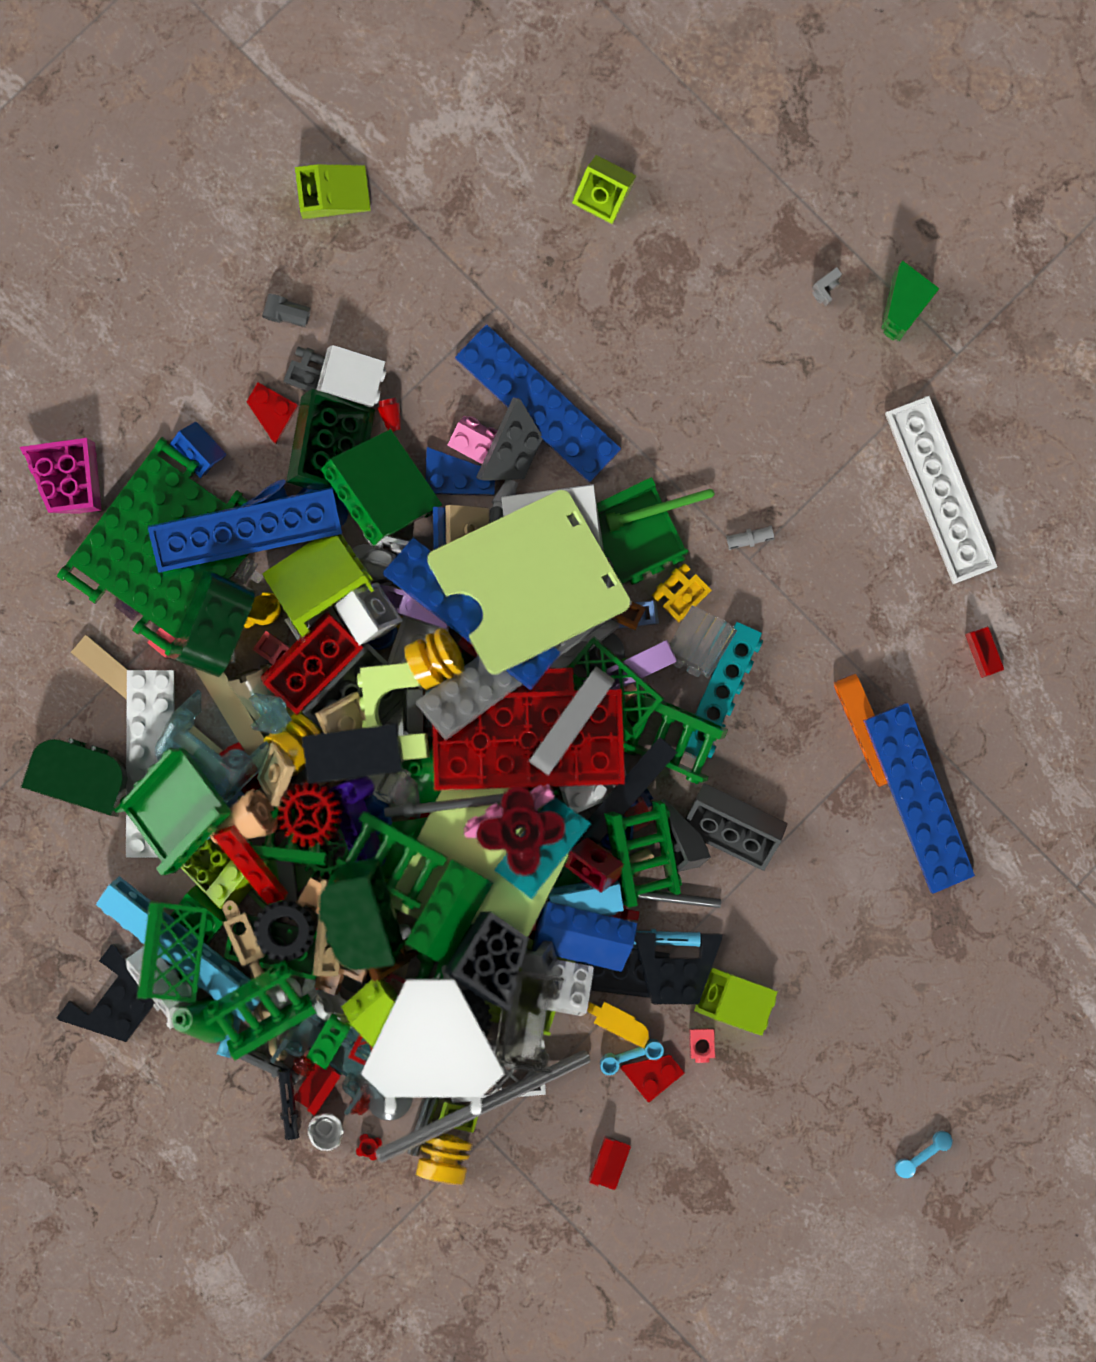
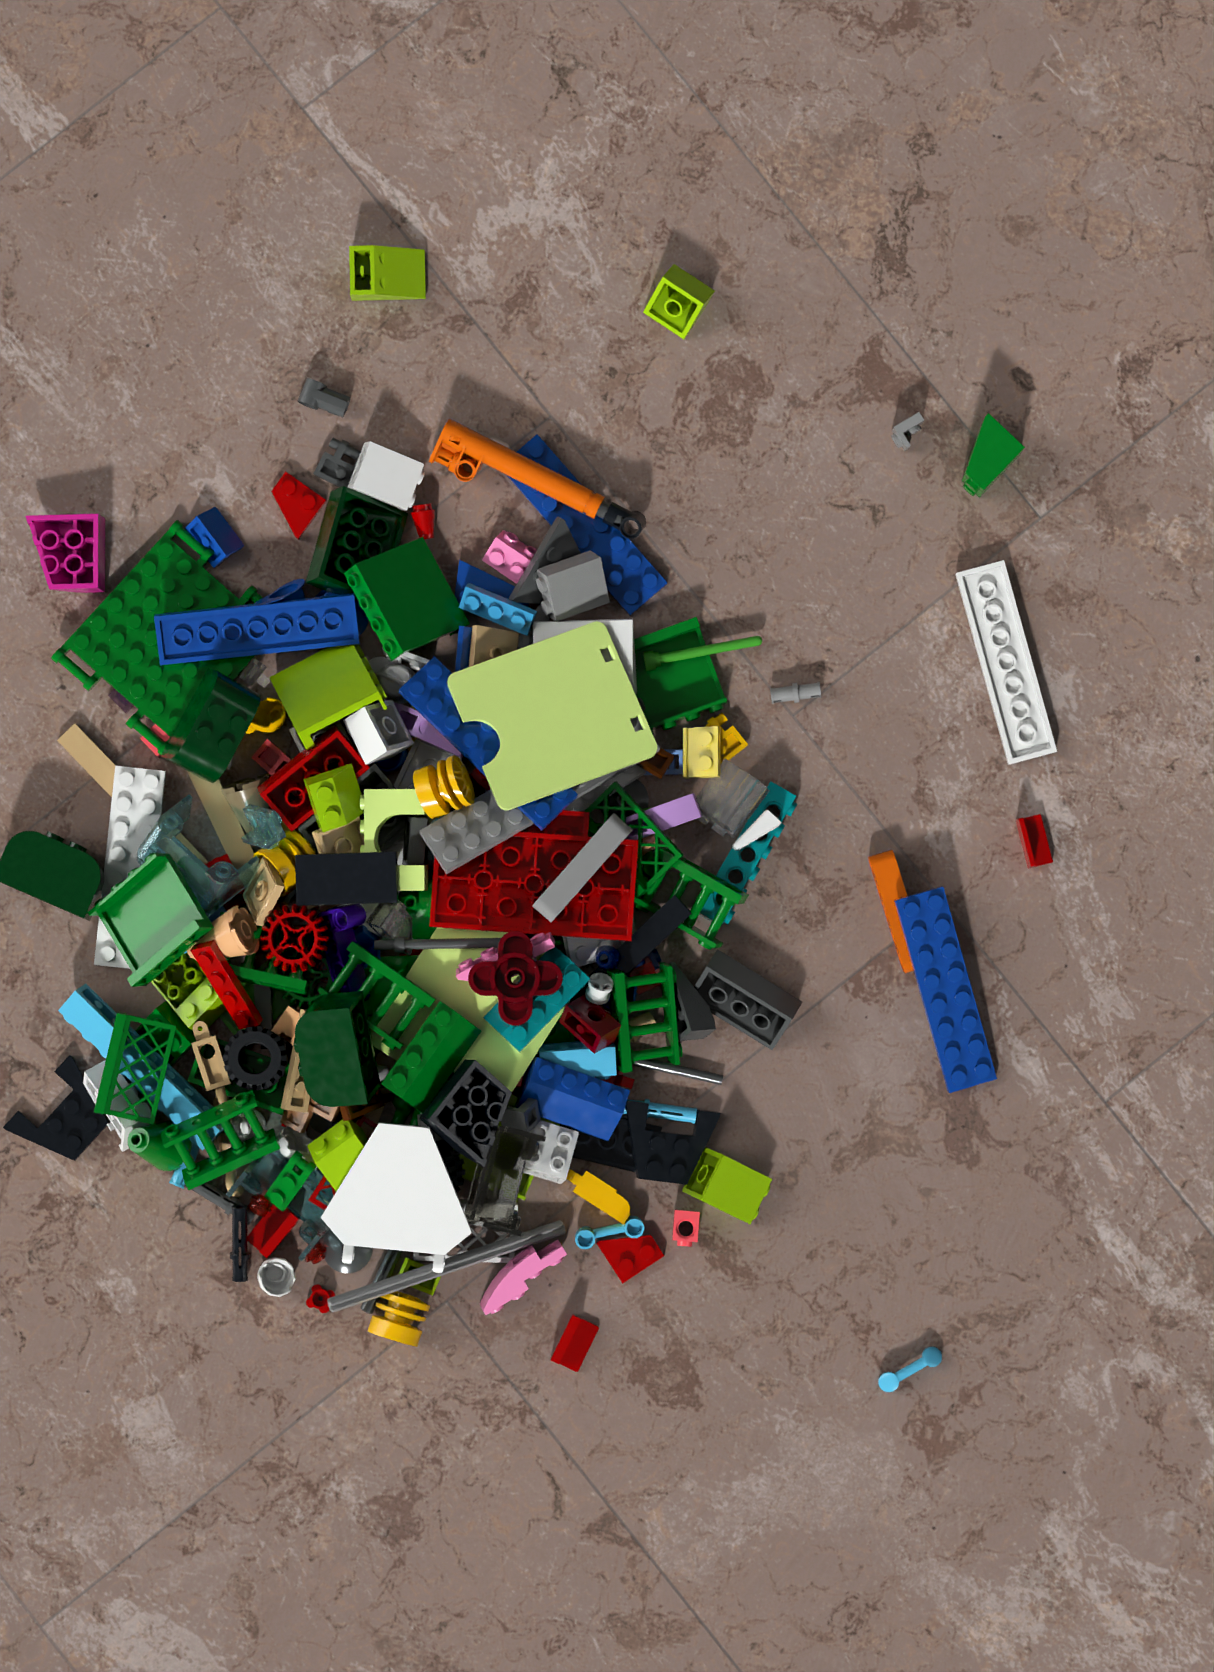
camera: 10 degrees right, 0 degrees up
(333, 678) = (334, 797): none -> lime slope
(419, 340) = (463, 445): none -> orange piece
(467, 488) = (497, 609): none -> dark azure plate
(534, 460) = (572, 586): none -> light grey brick
(544, 1111) = (510, 1281): none -> bright pink slope
(599, 831) = (599, 988): none -> white wheel
(607, 797) = (612, 954): none -> clear blue cone
(670, 601) = (701, 752): none -> light yellow plate
(734, 663) = (763, 825): none -> white slope

